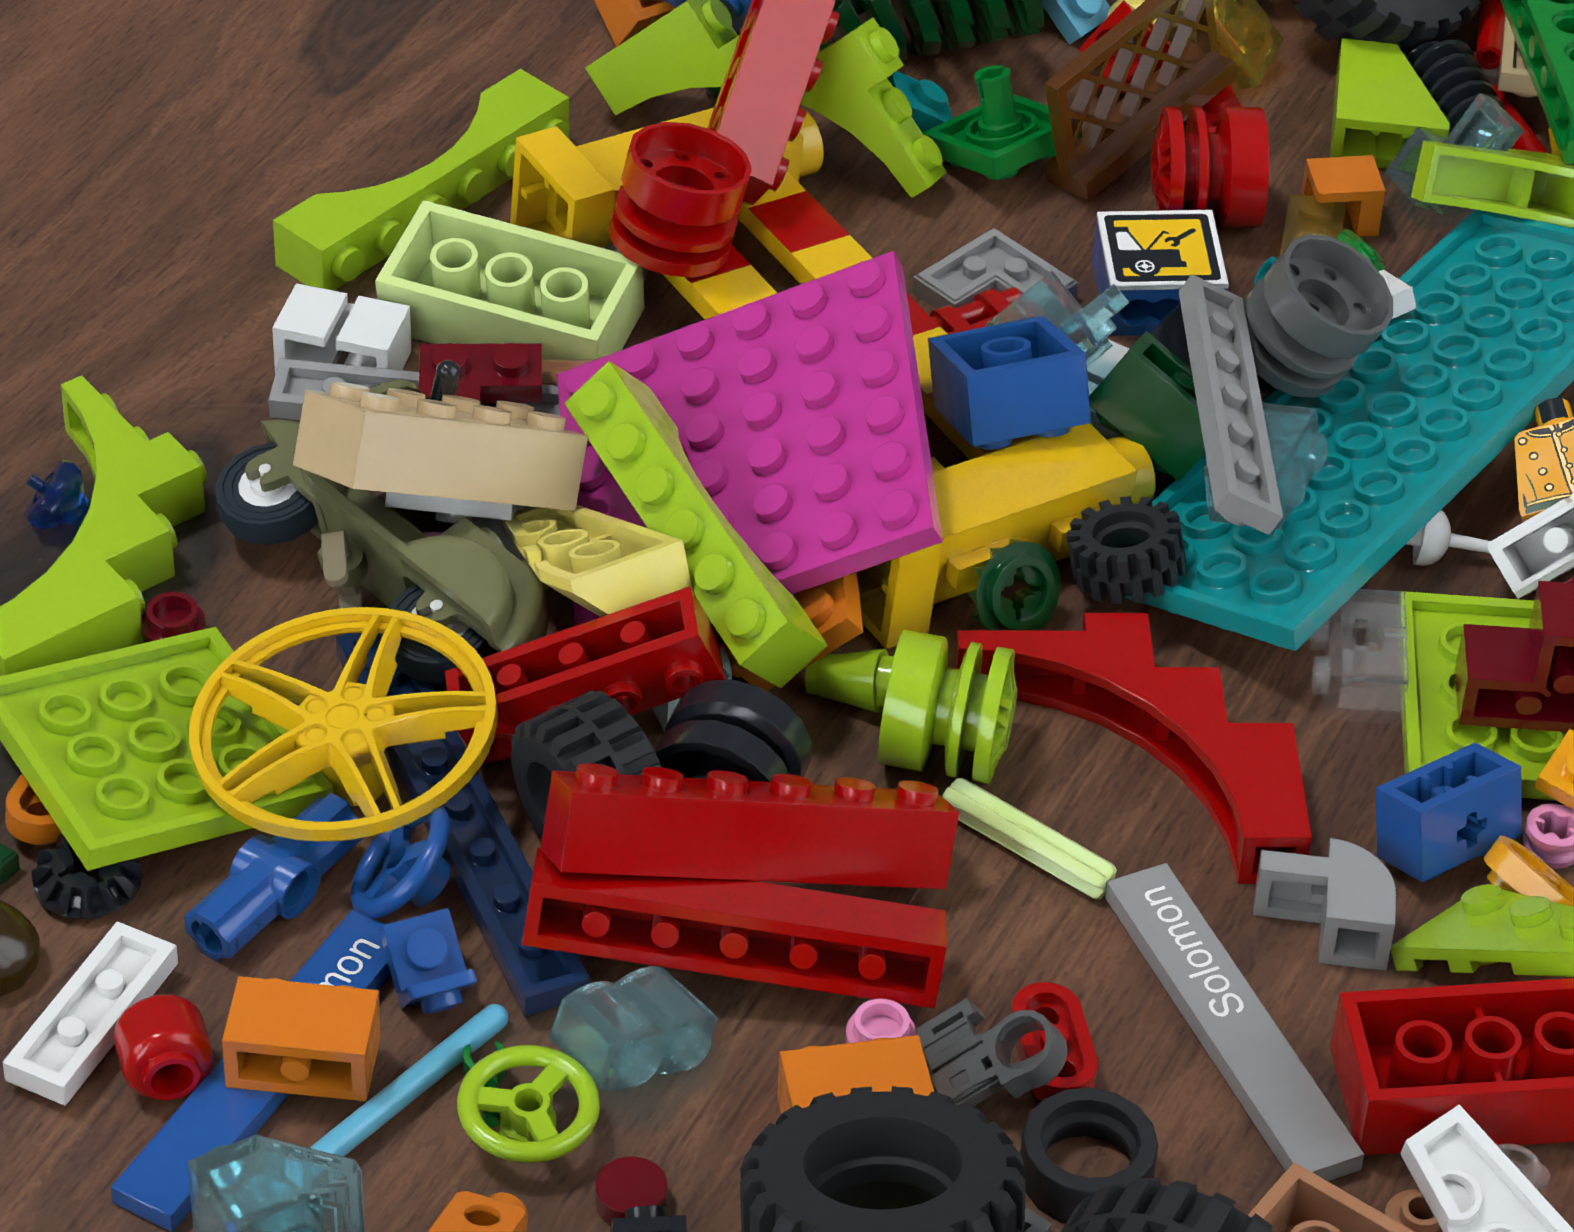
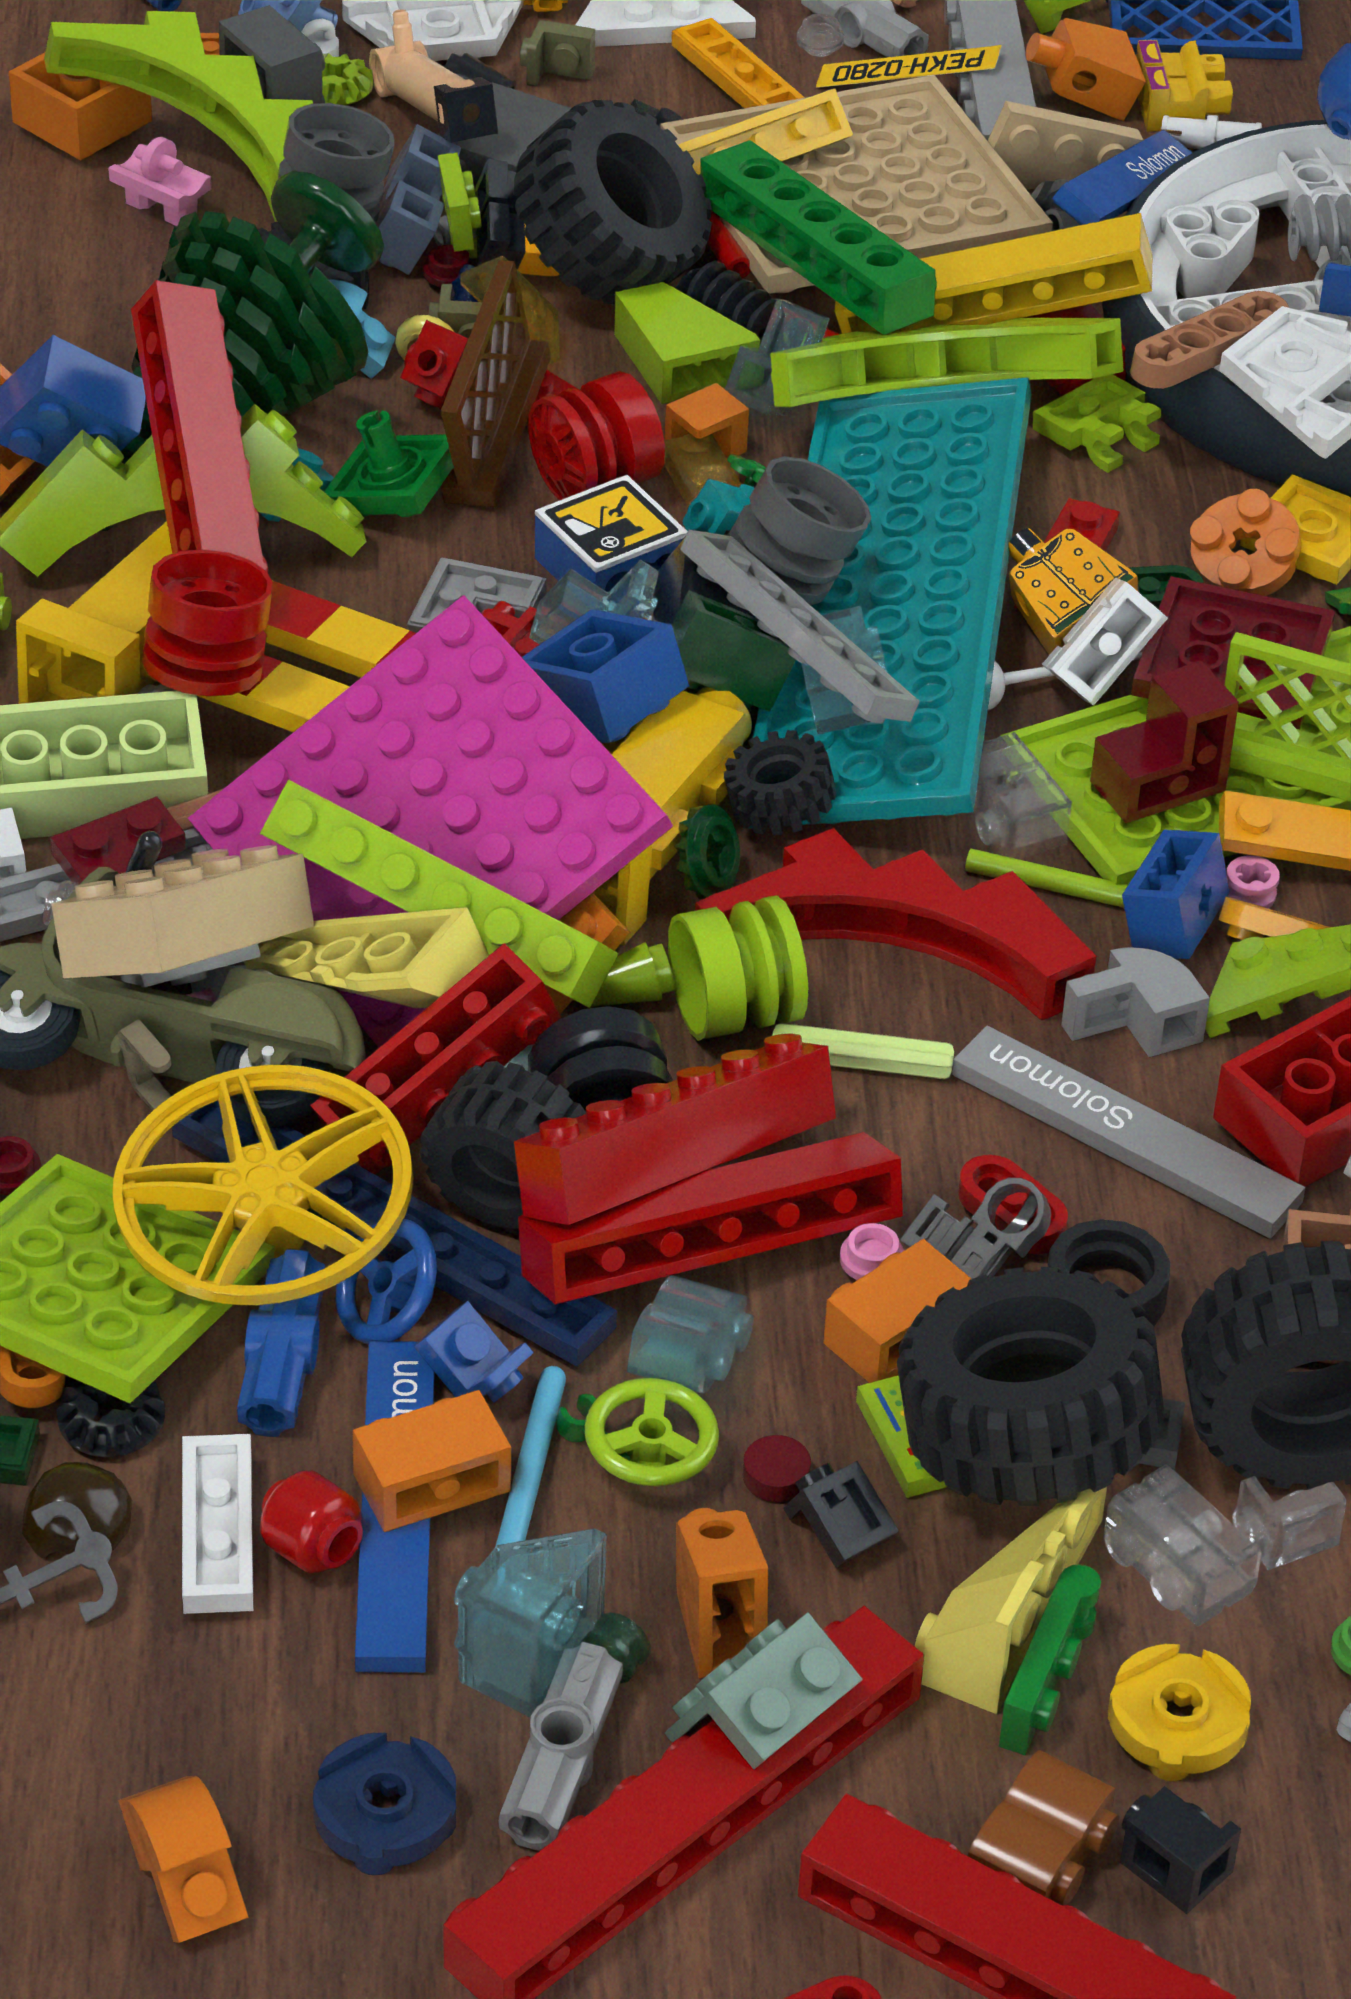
camera: 30 degrees left, 0 degrees up
(1335, 738) = (1046, 877): none -> lime bar

